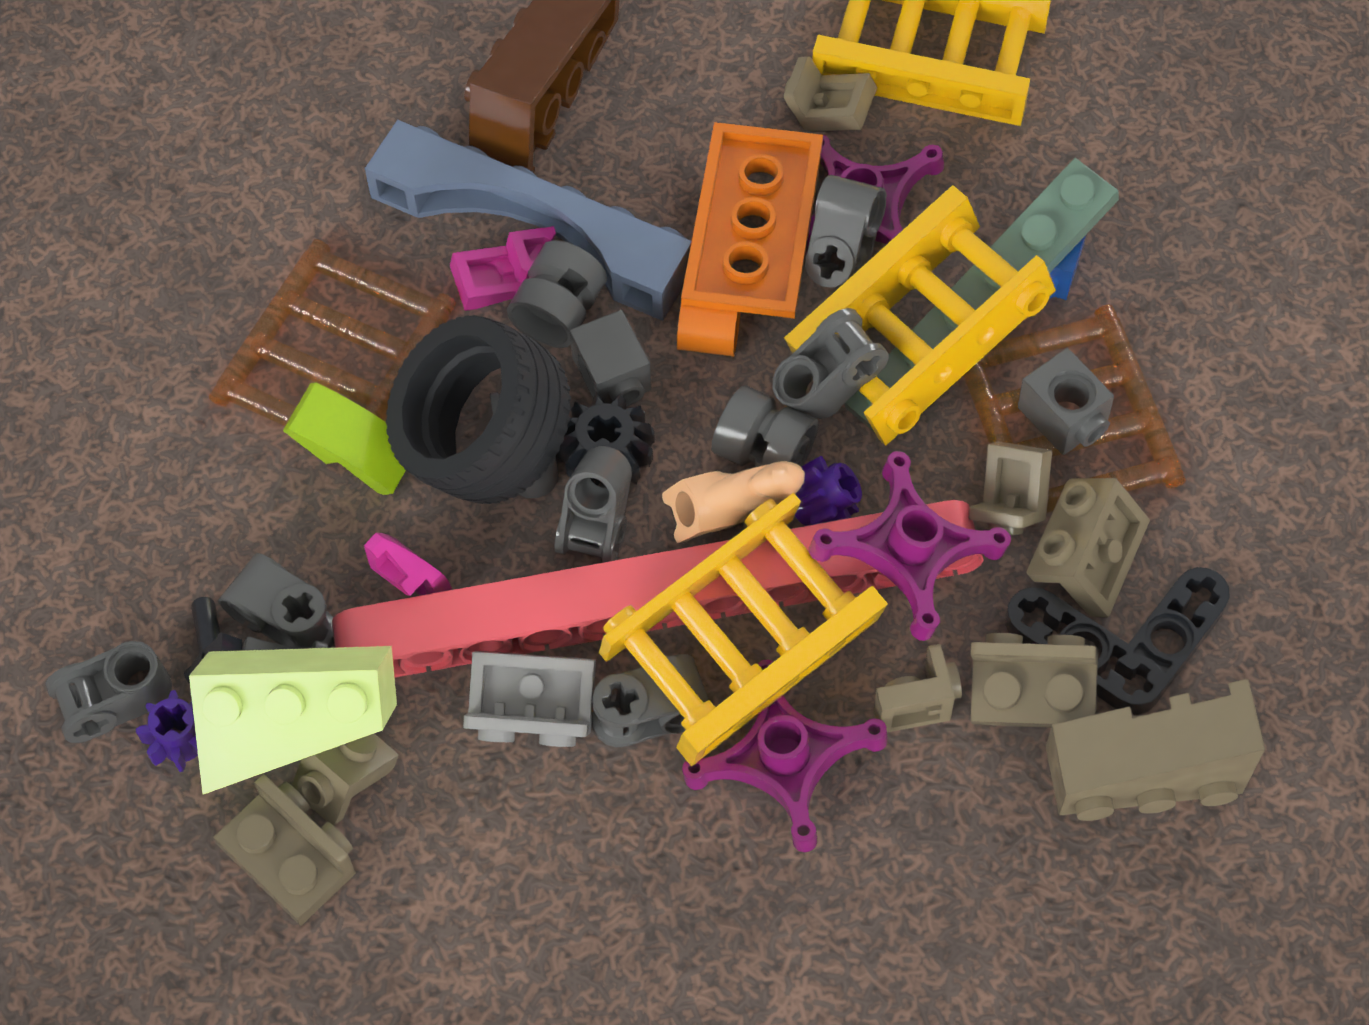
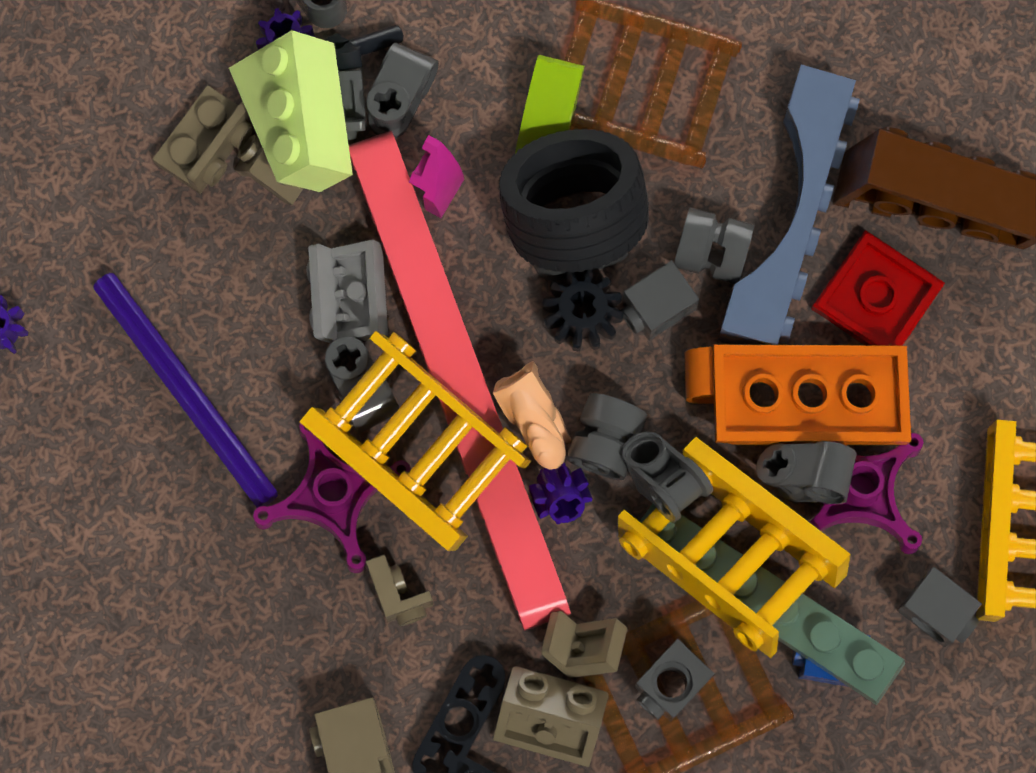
camera: 80 degrees right, 15 degrees up
(497, 272) = (738, 196): dark pink slope -> none
(591, 515) = (516, 311): dark grey piece -> none
(613, 920) = (185, 390): none -> dark purple axle
(642, 155) = (877, 294): none -> red tile
(828, 100) = (961, 442): dark tan bracket -> none
(910, 544) = (508, 564): magenta piece -> none
(1008, 145) = (941, 608): none -> dark grey brick
(1032, 681) = (415, 682): dark tan bracket -> none

